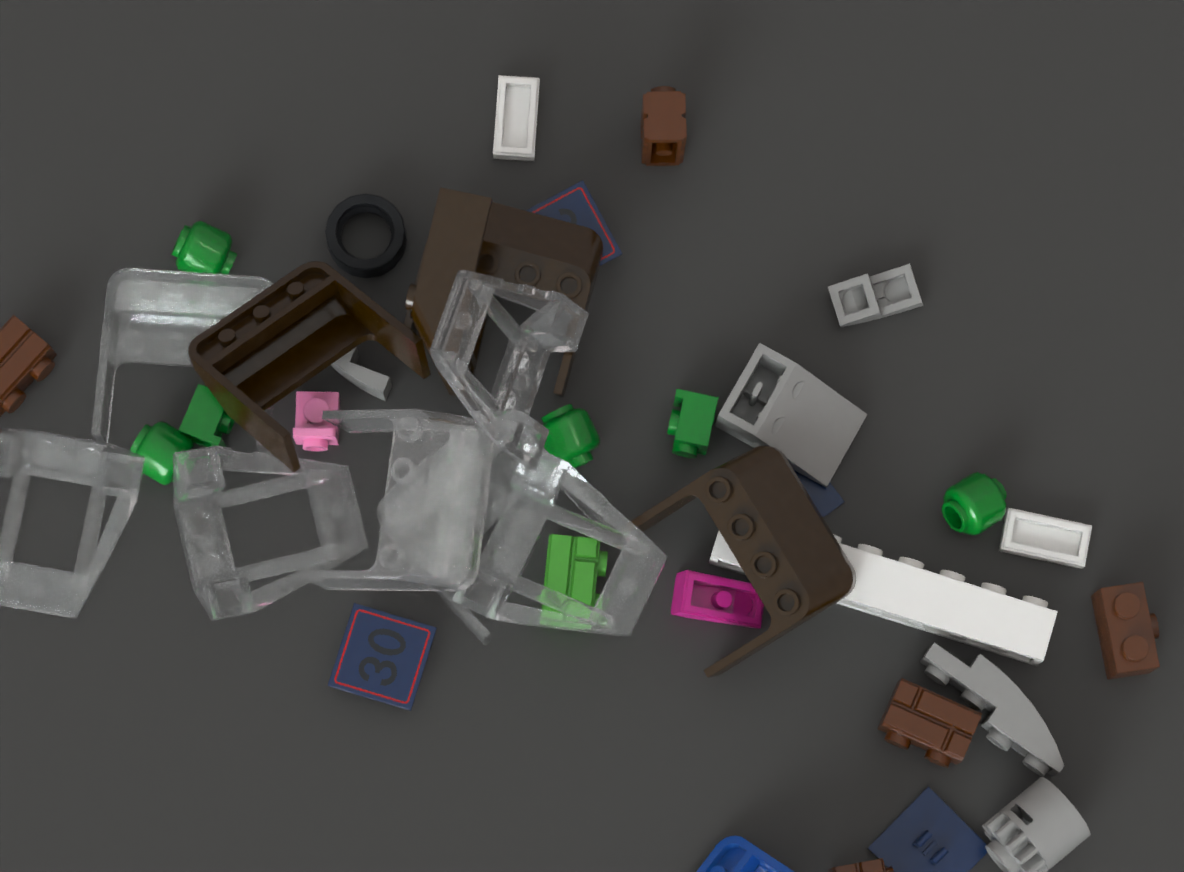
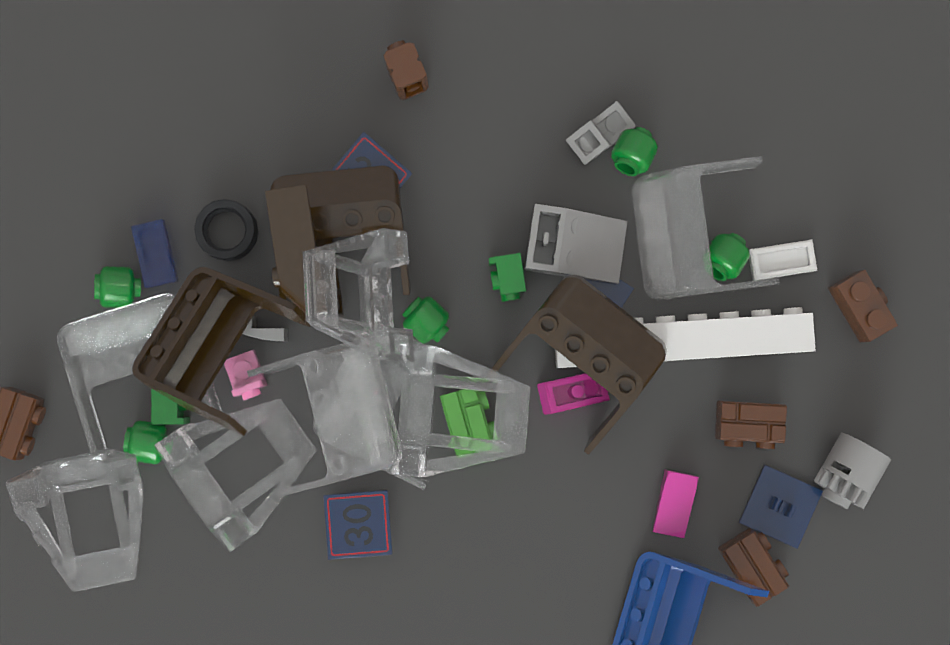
camera: 20 degrees left, 10 degrees up
(266, 231) = (154, 253): none -> clear blue plate
(516, 118) = (298, 101): white tile -> none
(794, 789) = (675, 503): none -> dark pink slope
(907, 332) = (634, 151): none -> green head
(921, 451) = (675, 232): none -> clear windscreen
(1012, 716) = (804, 395): light grey slope -> none

